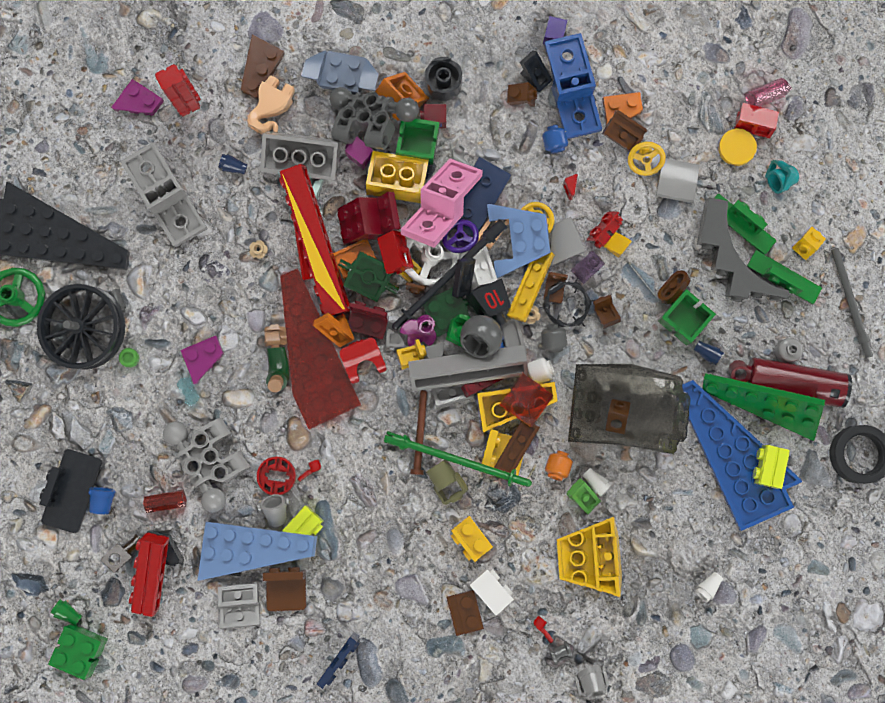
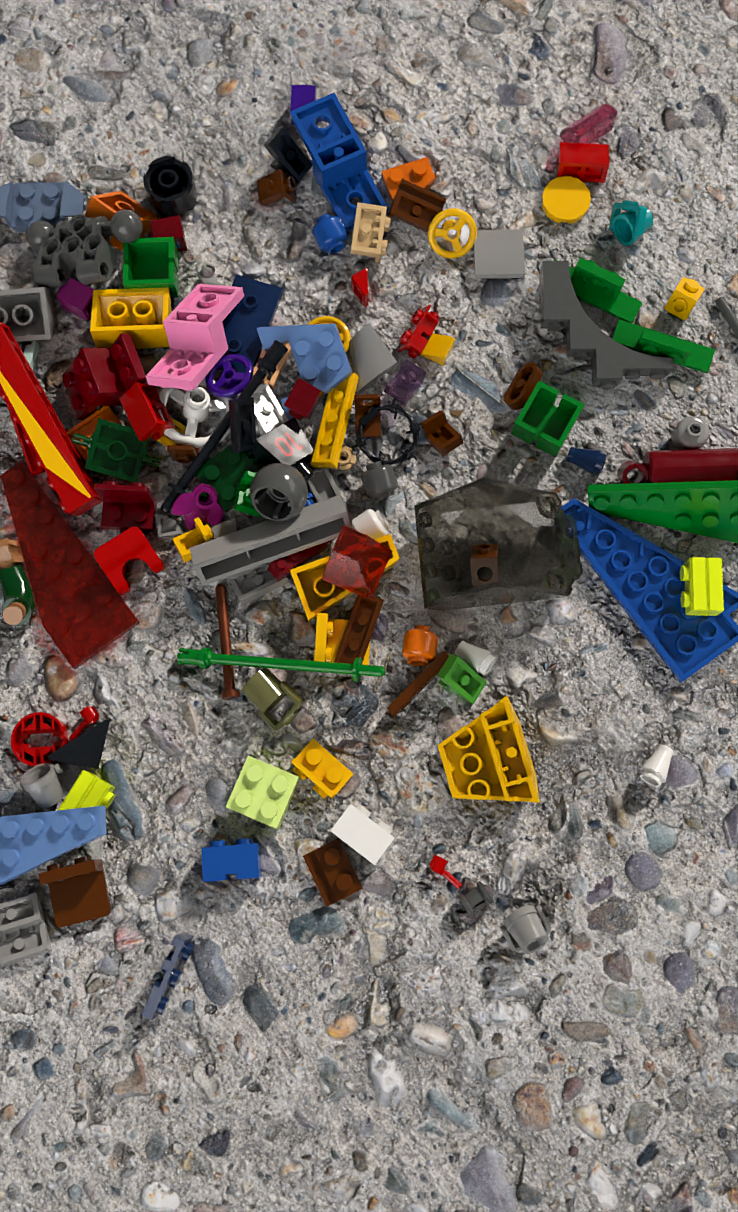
camera: 10 degrees left, 5 degrees down
(307, 489) = (84, 749): none -> black tile
(335, 328) = (84, 528): orange slope -> none
(396, 589) = (237, 859): none -> blue brick
(427, 548) = (263, 792): none -> yellowish green brick
(511, 267) = (303, 400): none -> dark red brick
(553, 492) = (417, 685): none -> reddish brown tile
(585, 144) = (369, 230): none -> tan bracket

